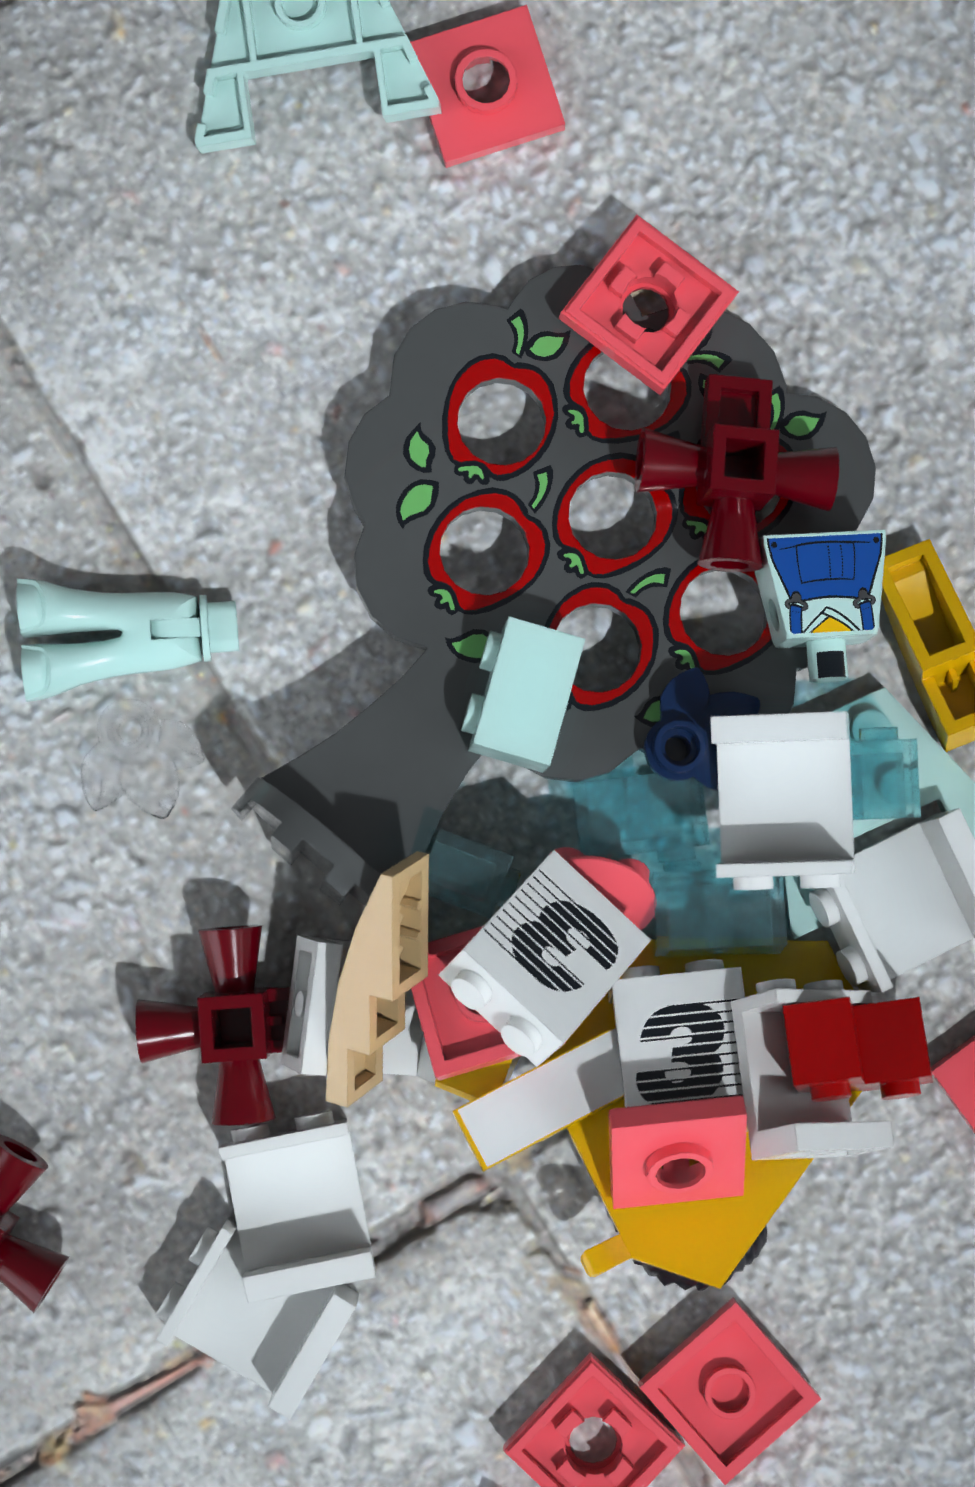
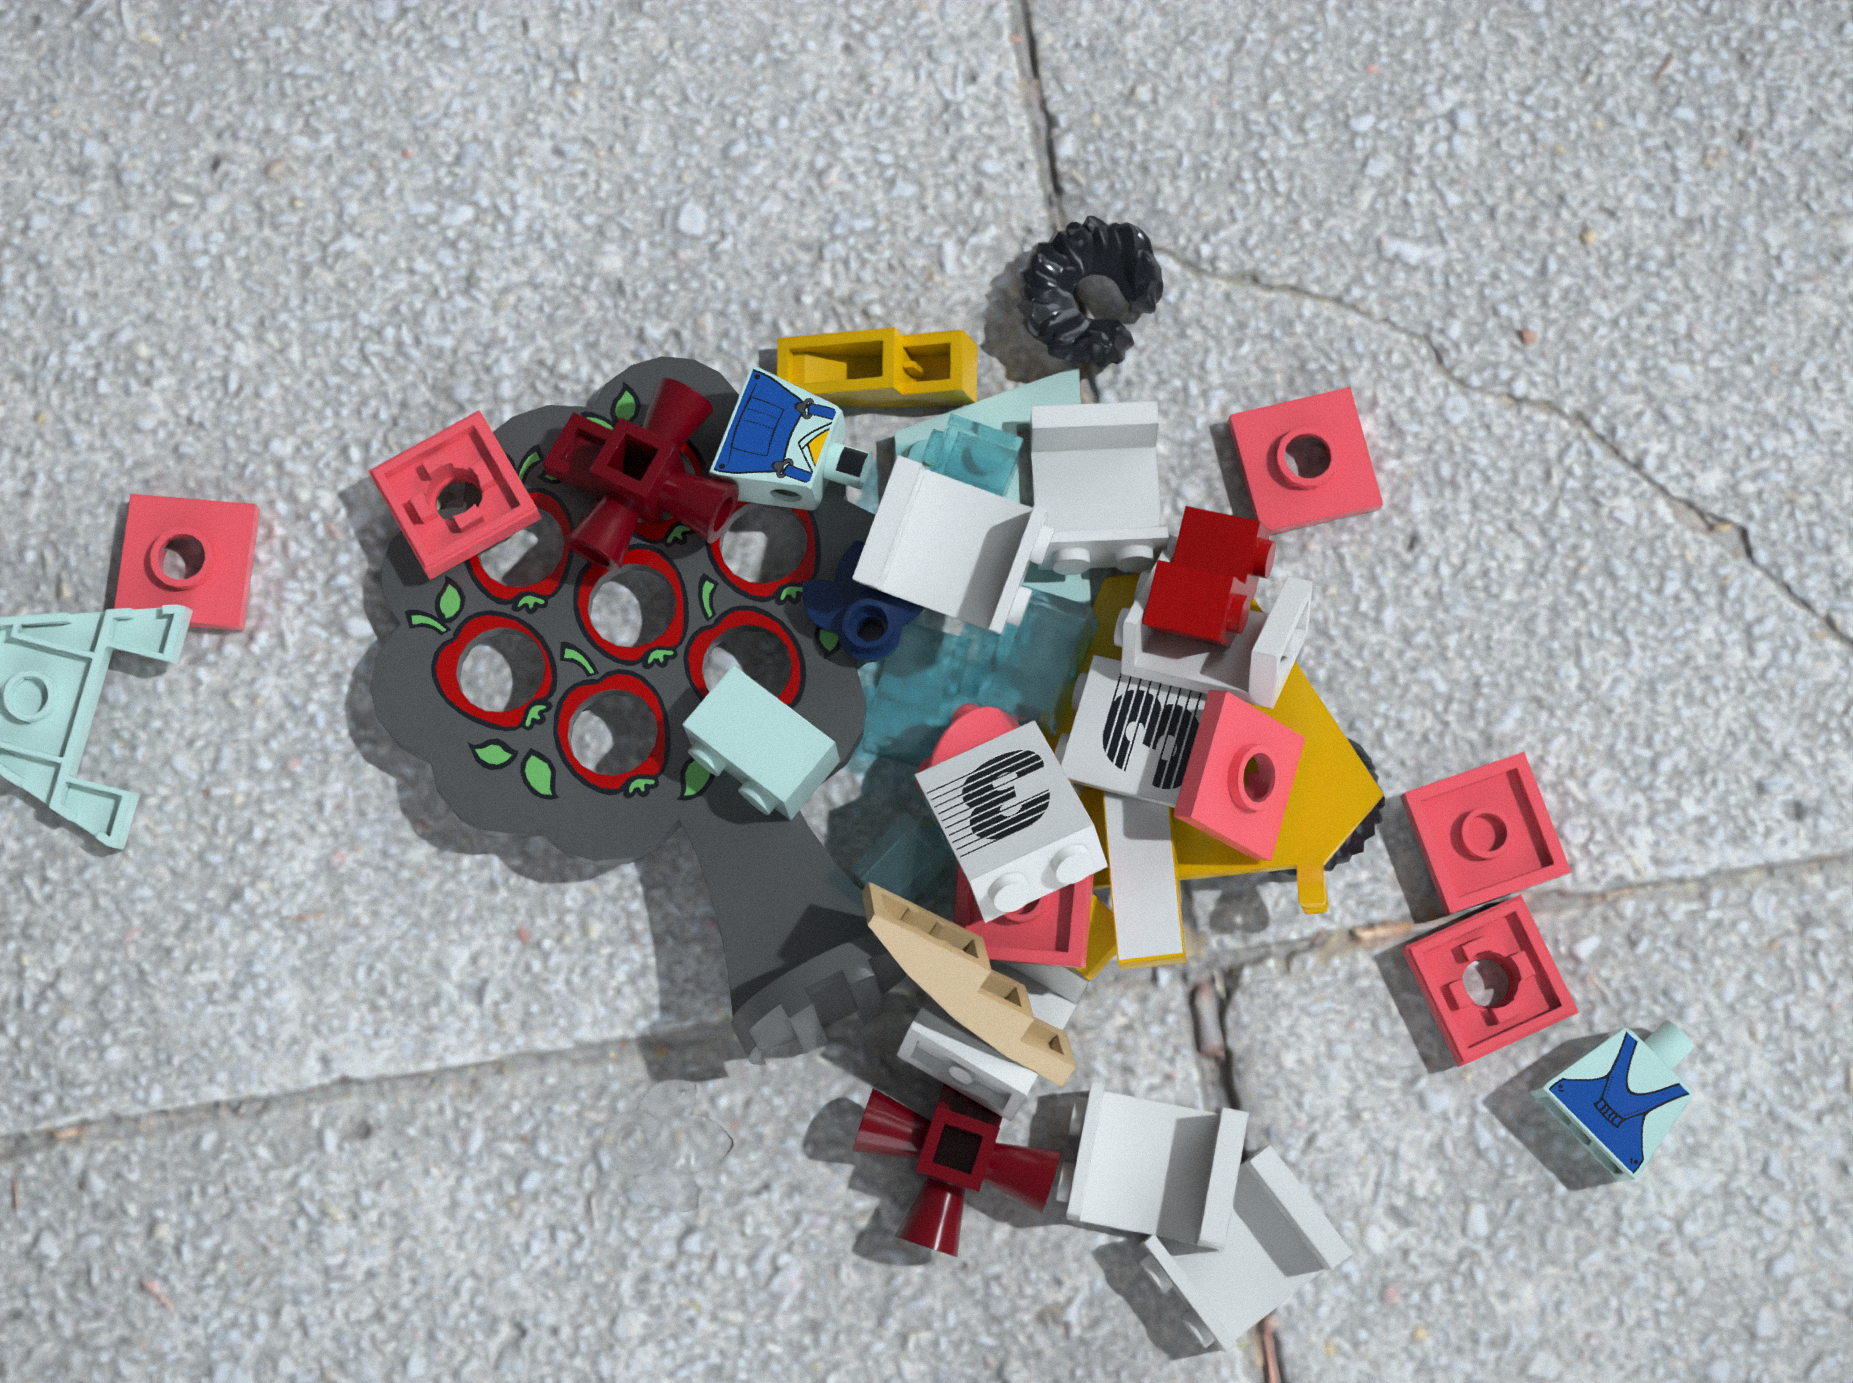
camera: 70 degrees left, 10 degrees down
(156, 628) = (549, 1075): light aqua piece -> none

